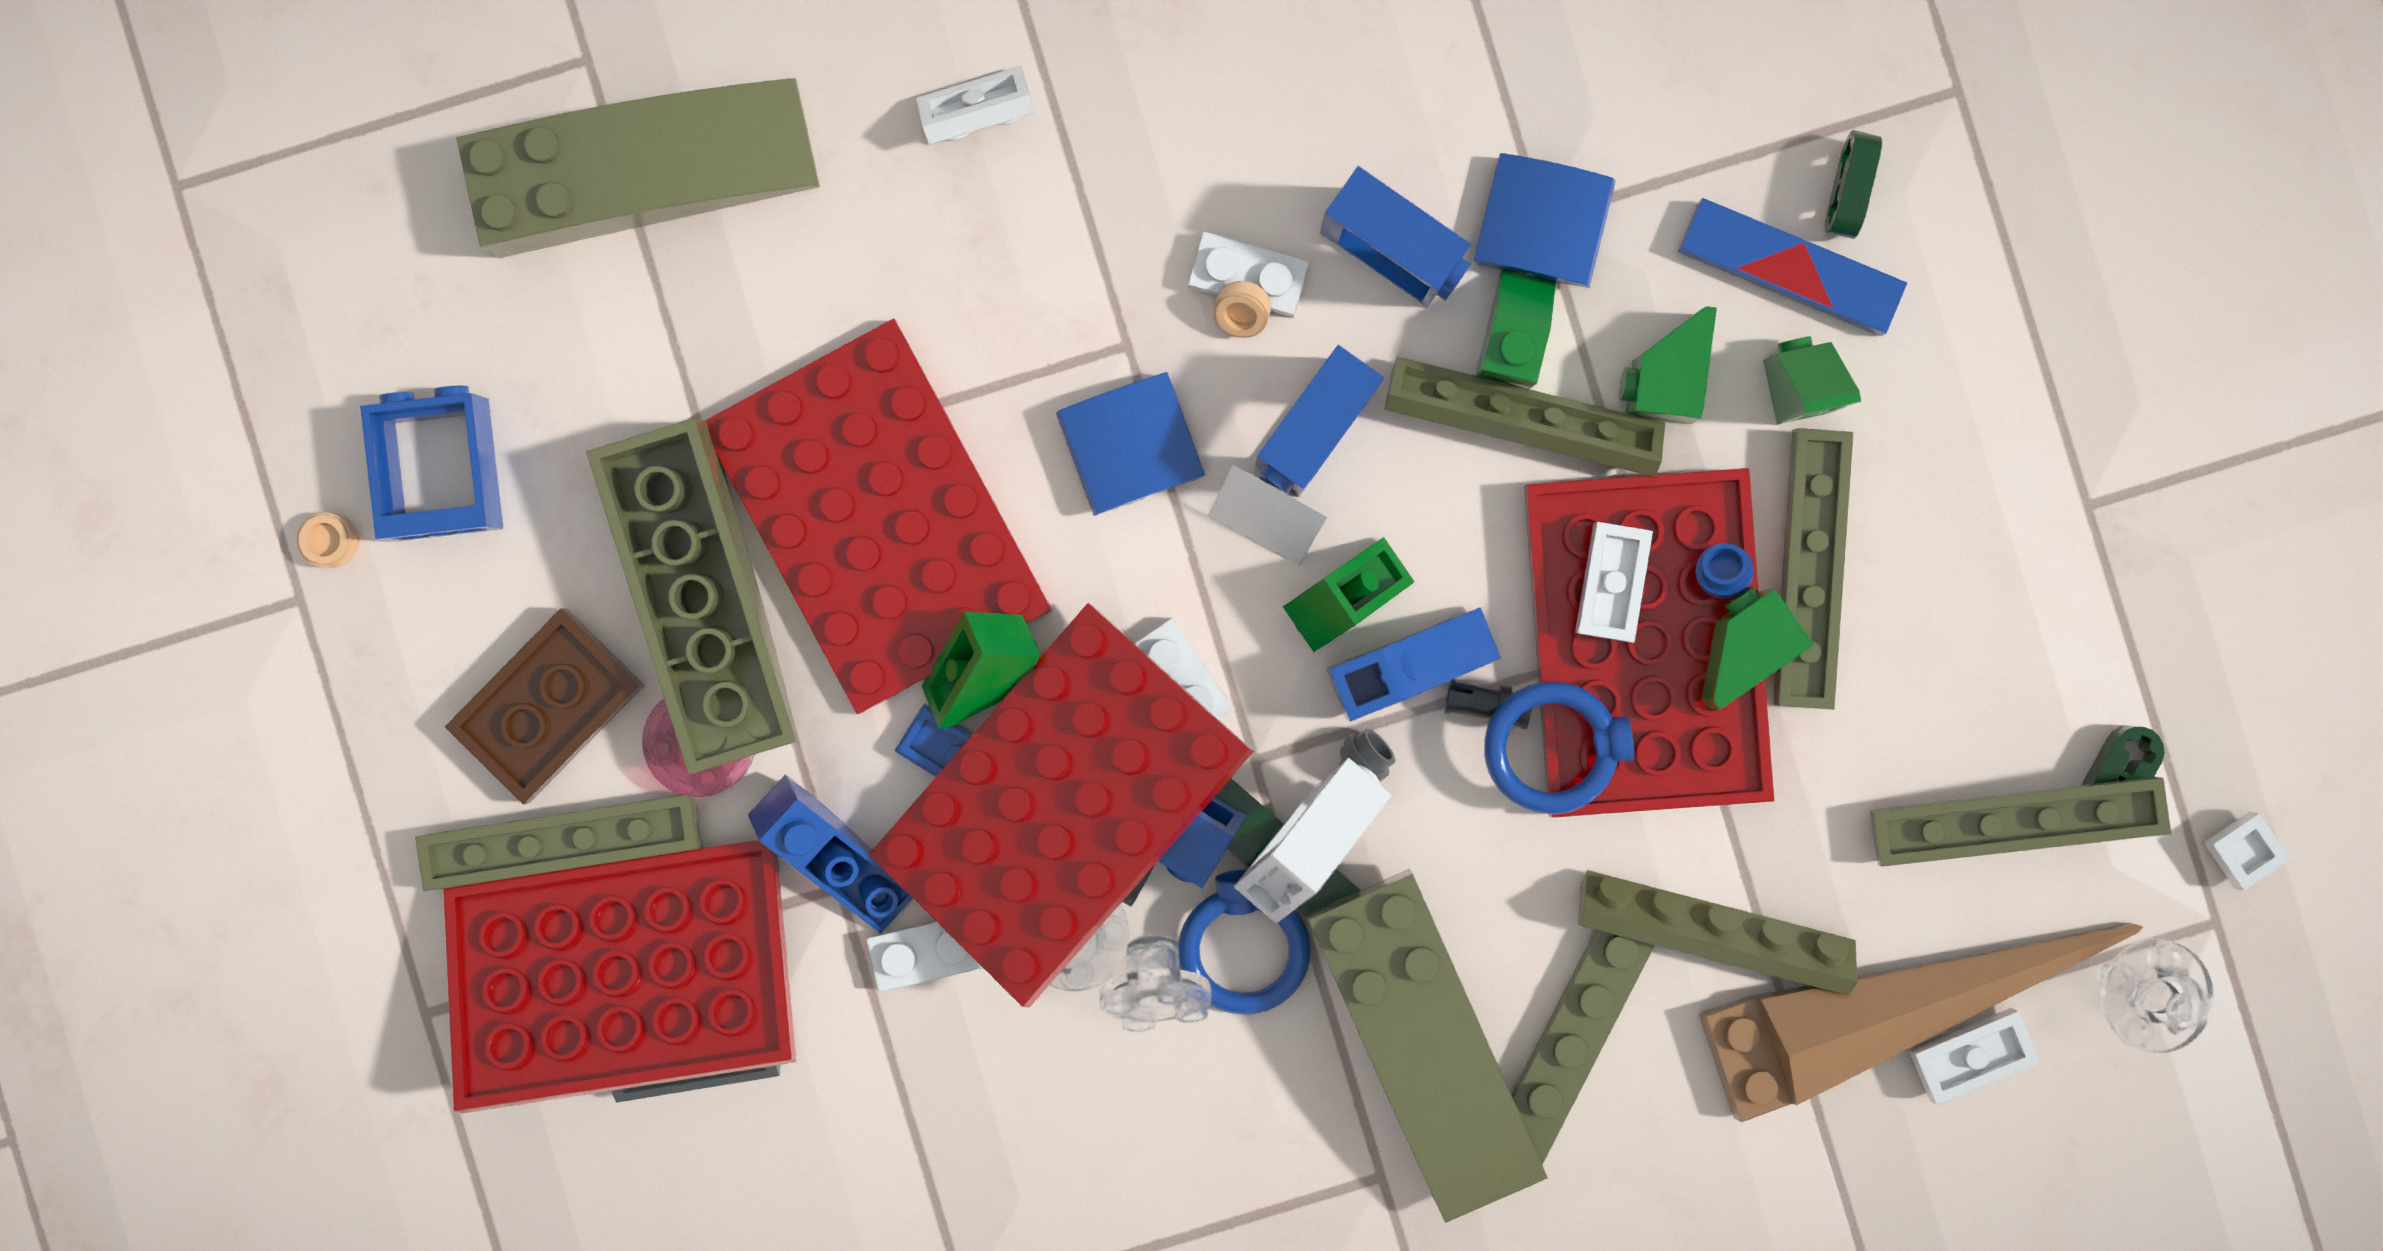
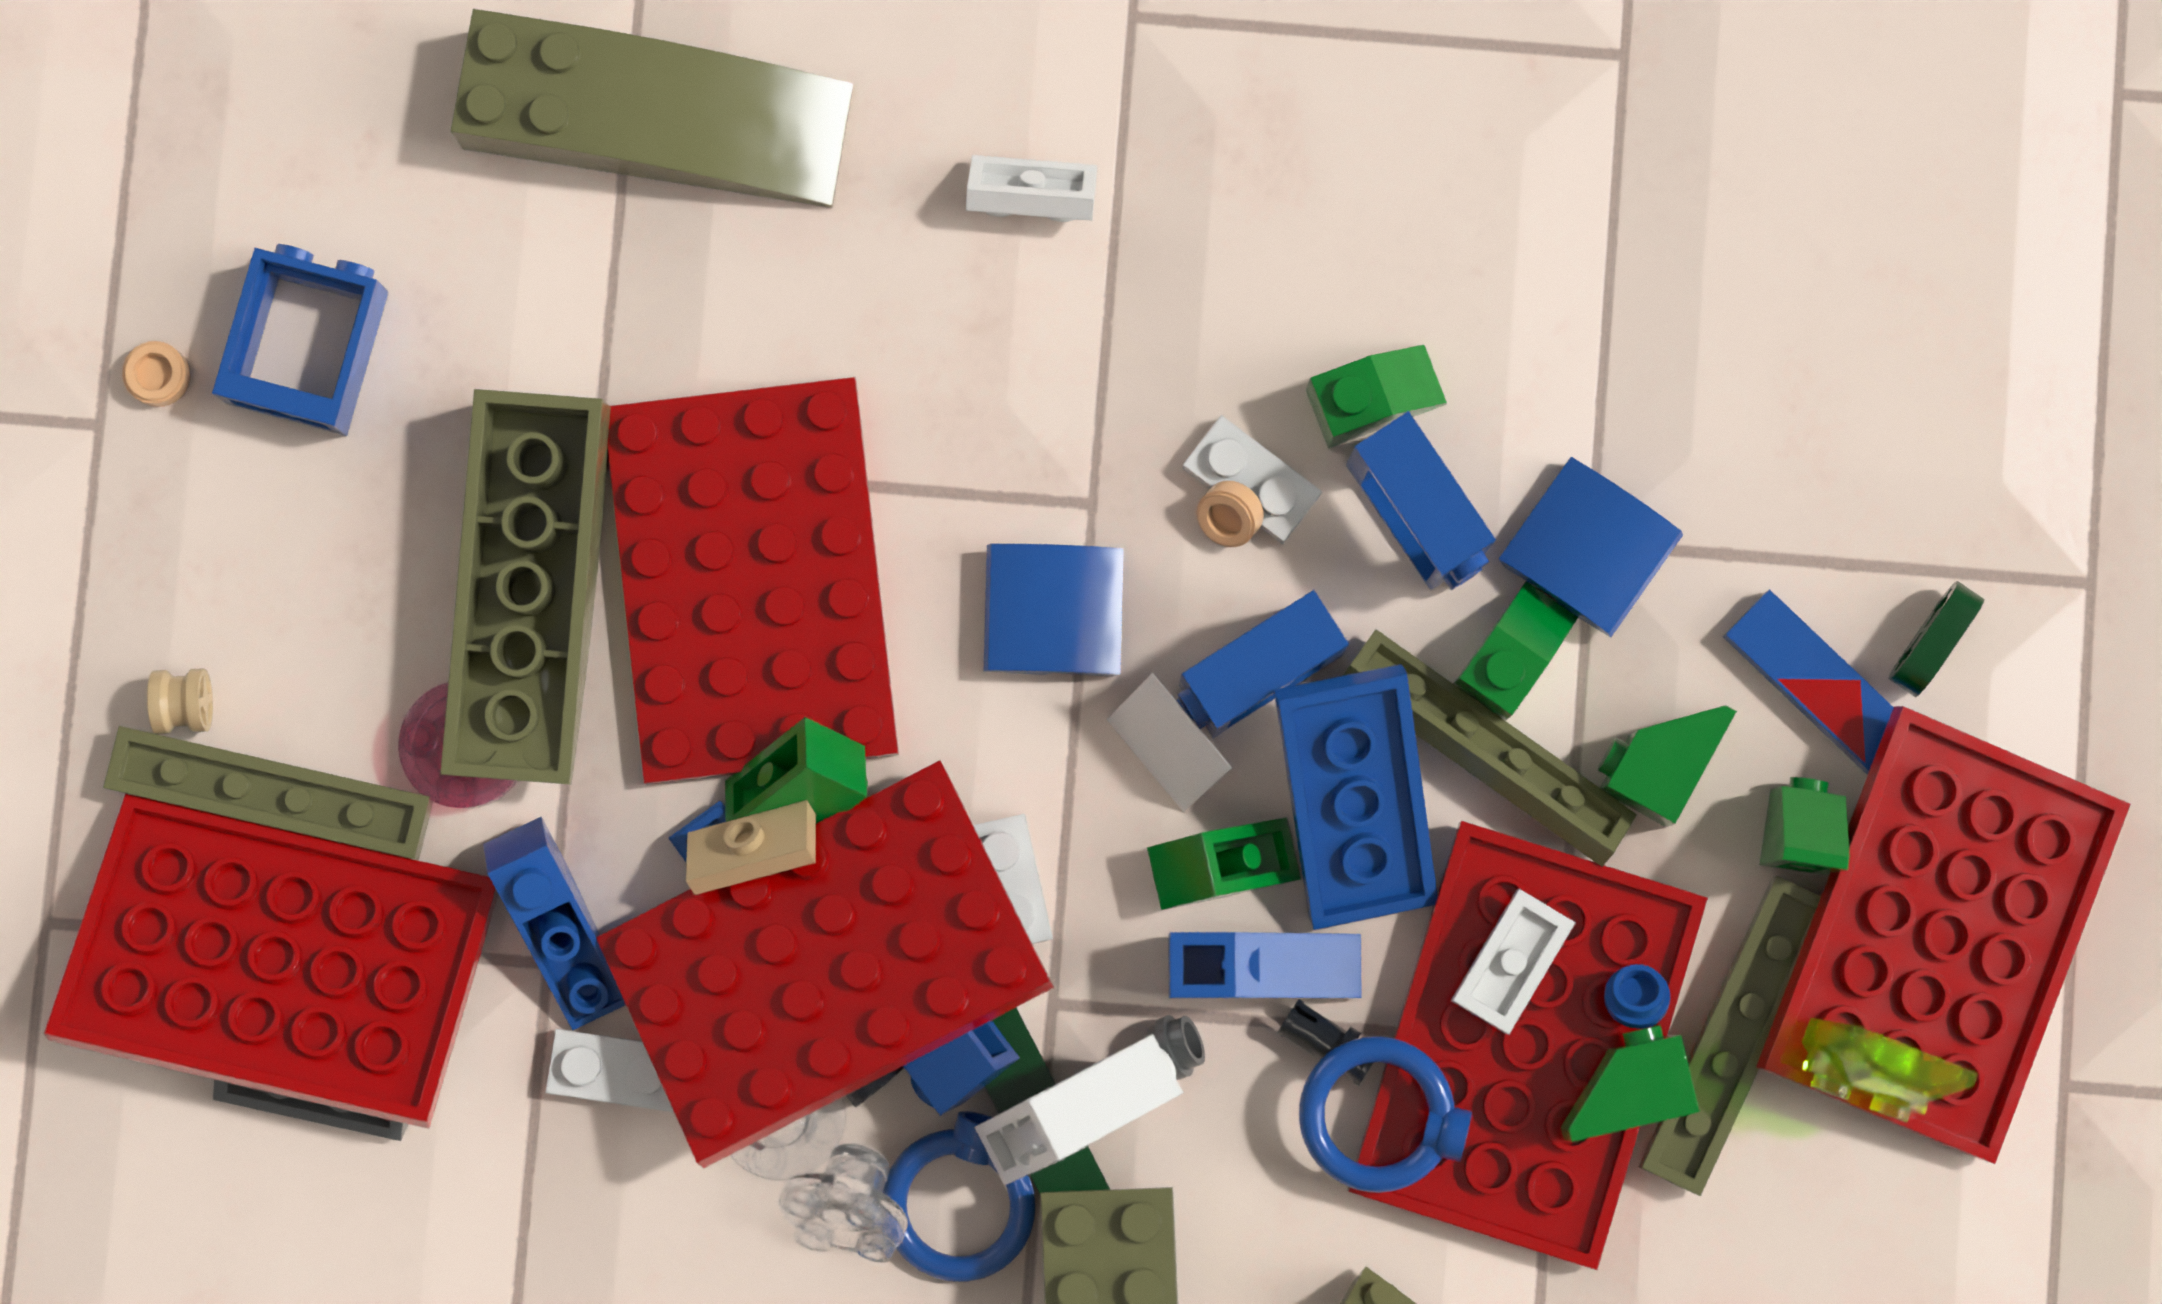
camera: 25 degrees right, 5 degrees down
(456, 797) = (180, 701): none -> tan wheel
(544, 706) = (314, 641): reddish brown plate -> none
(963, 734) = (751, 847): none -> tan plate
(1319, 164) = (1373, 393): none -> green slope
(1436, 497) = (1357, 796): none -> blue plate
(1949, 552) = (1889, 1072): none -> clear neon green slope
(1956, 422) = (1951, 920): none -> red plate

